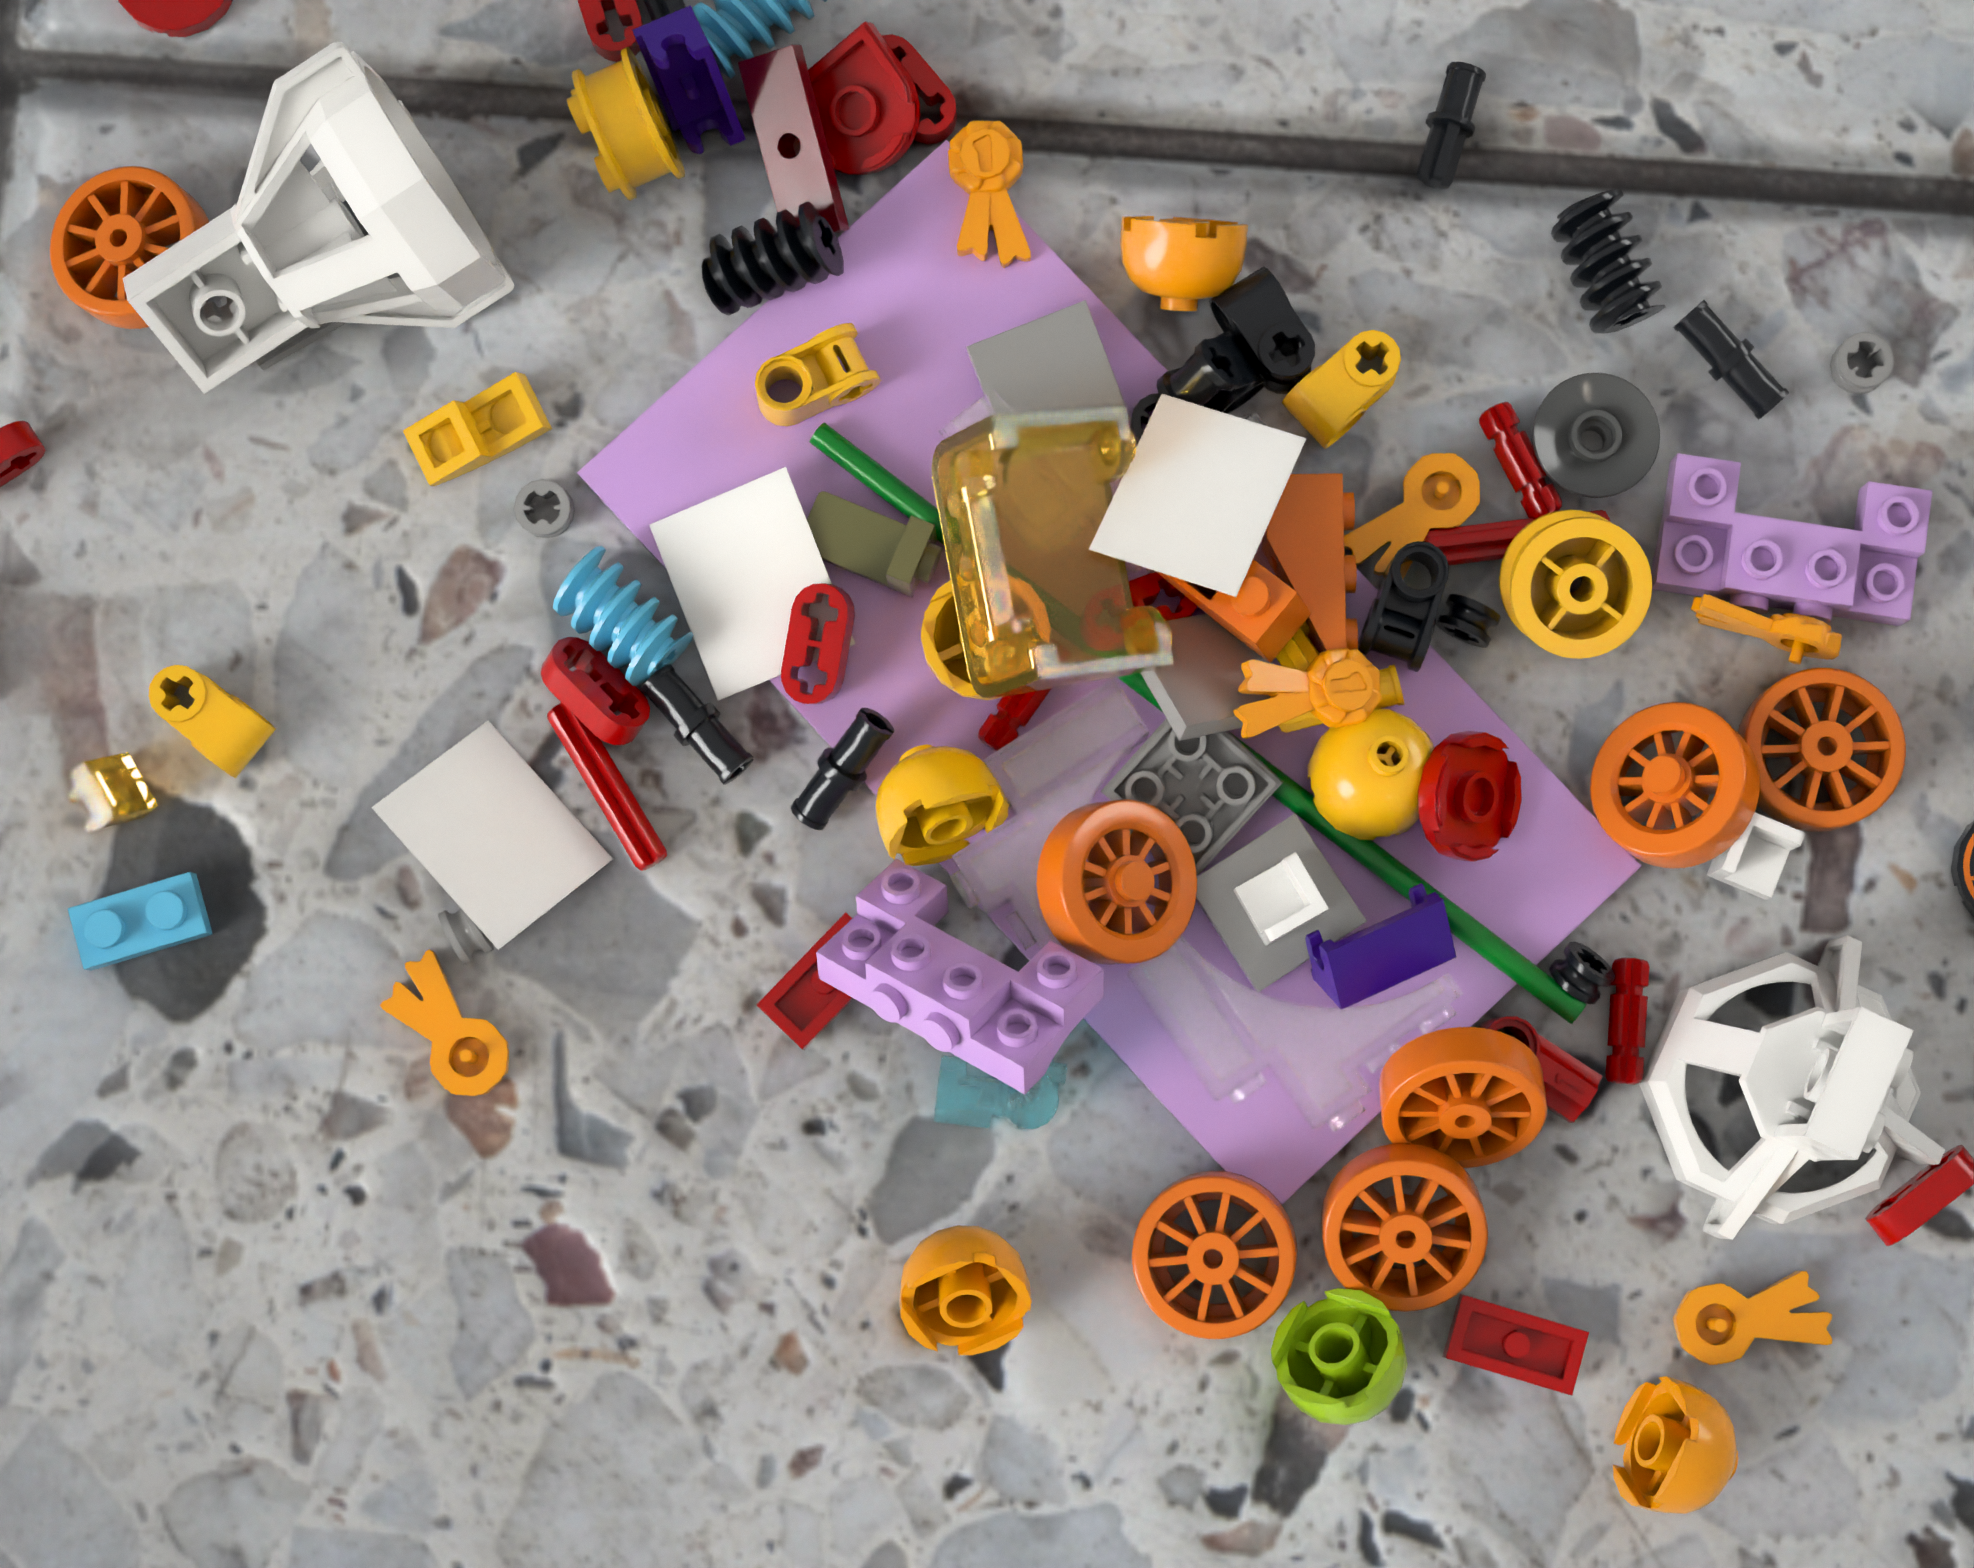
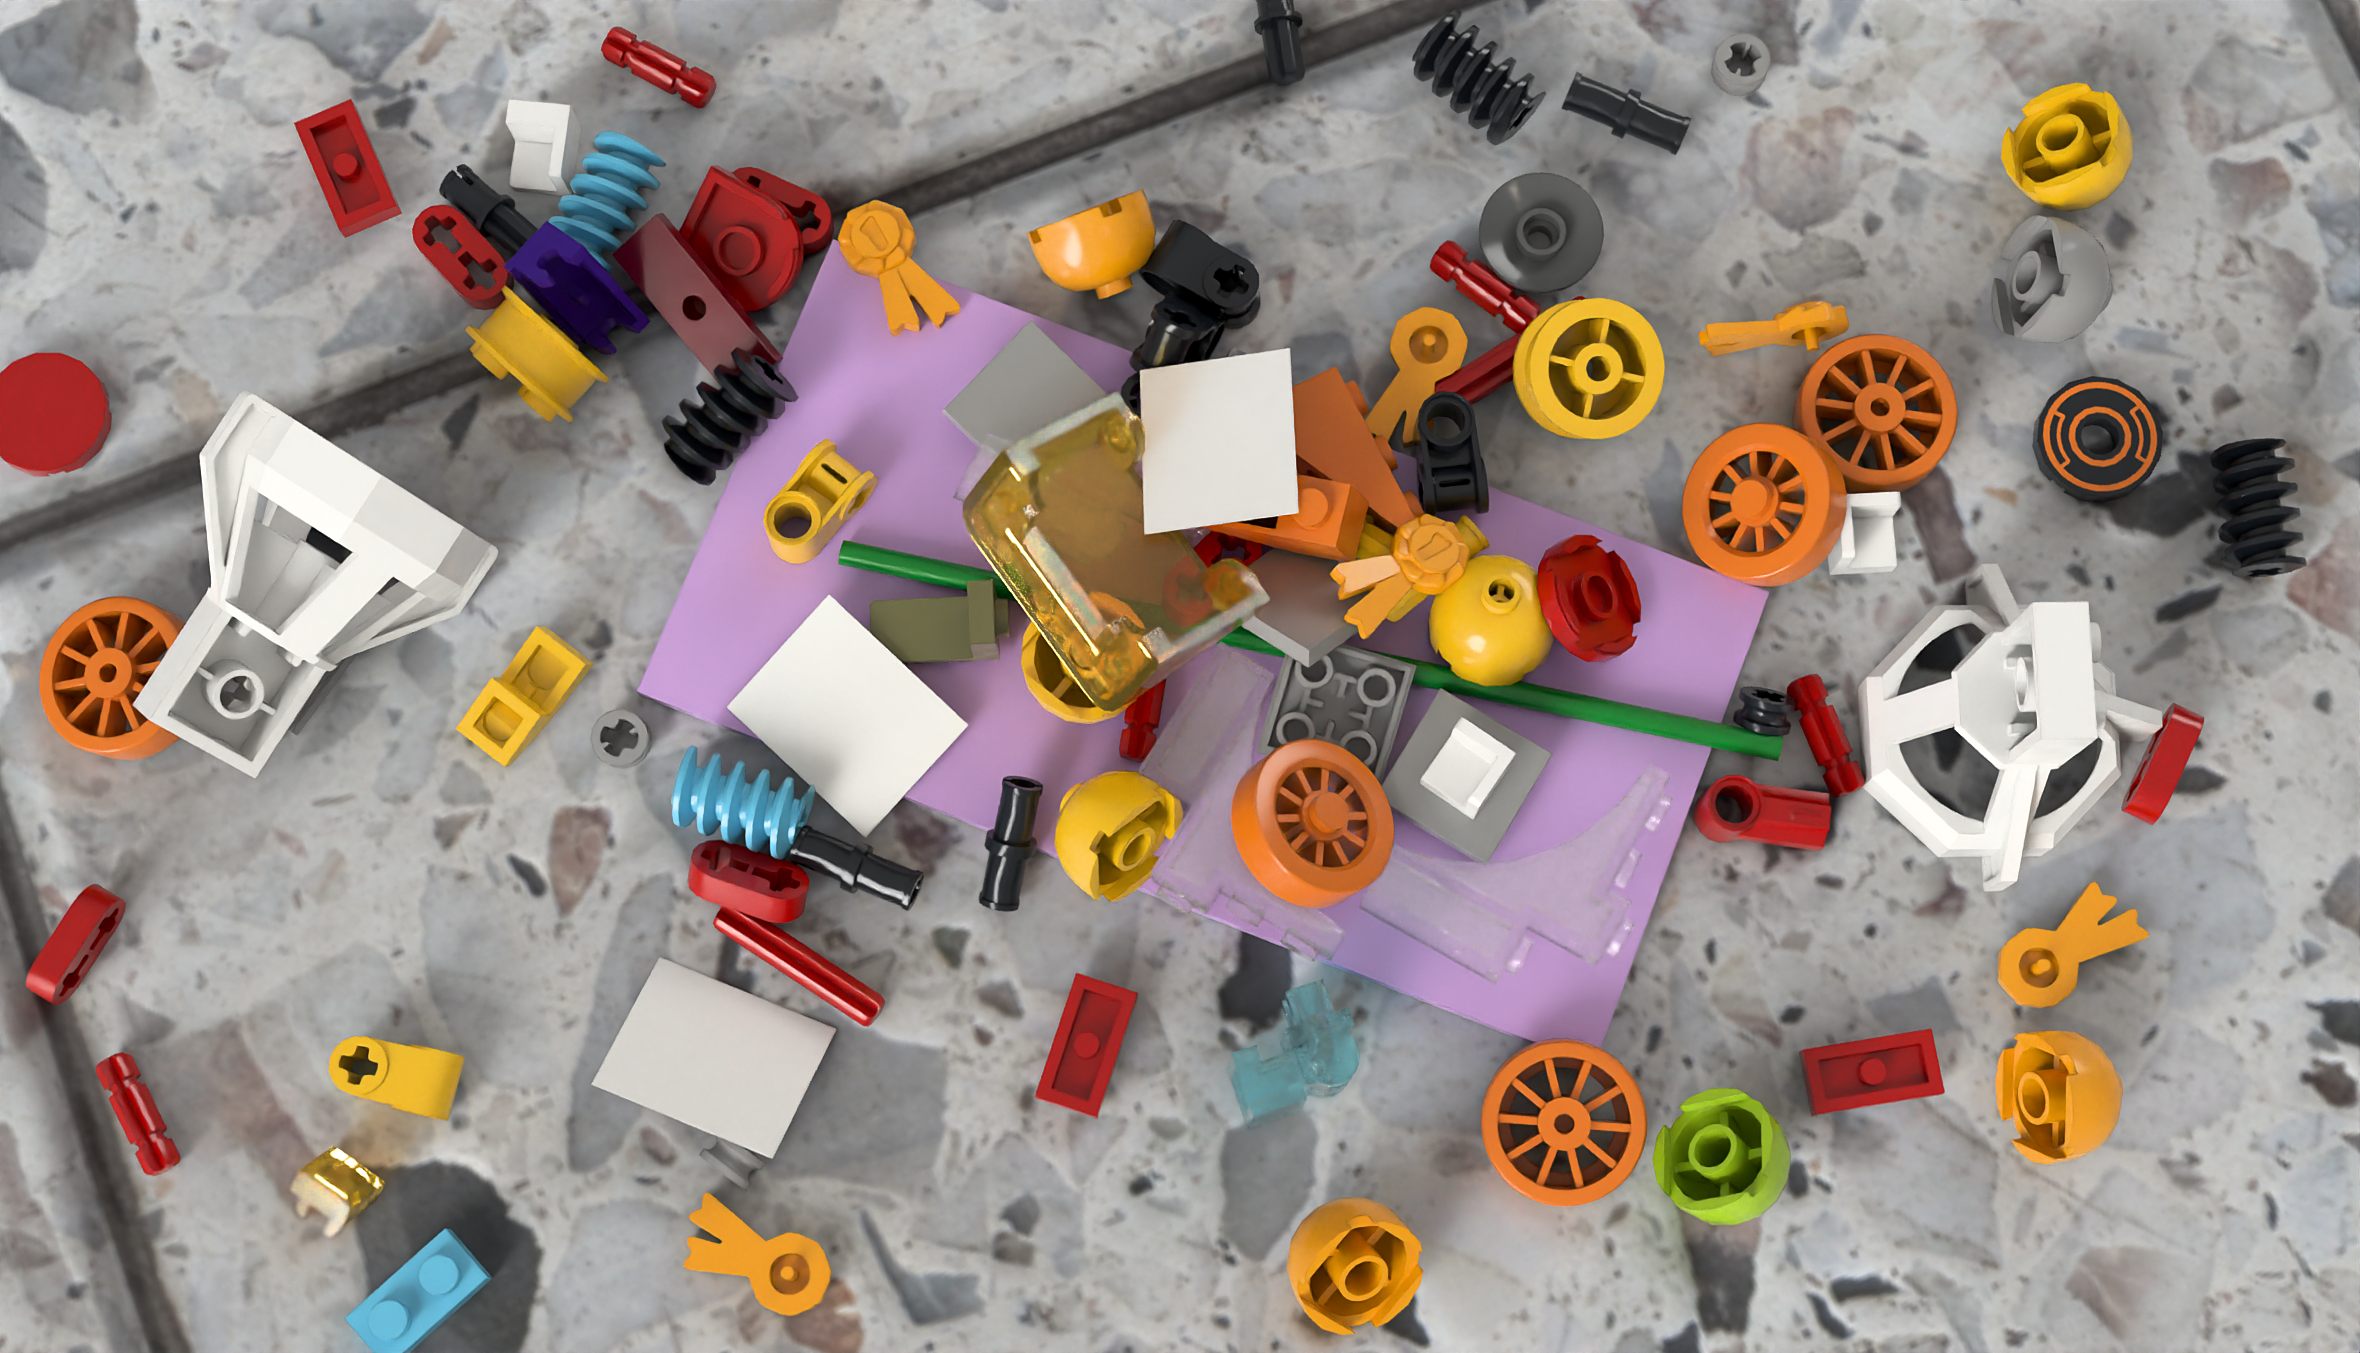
camera: 30 degrees left, 5 degrees down
(802, 642) = (949, 735): red beam -> none
(952, 992) = (1210, 991): lavender bracket -> none
(1338, 394) = (1297, 300): yellow piece -> none
(1383, 952) = (1581, 772): dark purple hinge -> none
(1404, 1227) = (1721, 1013): orange wheel -> none
(1464, 1095) = (1715, 870): orange wheel -> none
(1468, 620) = (1509, 447): black bush -> none
(1787, 562) = (1764, 265): lavender bracket -> none

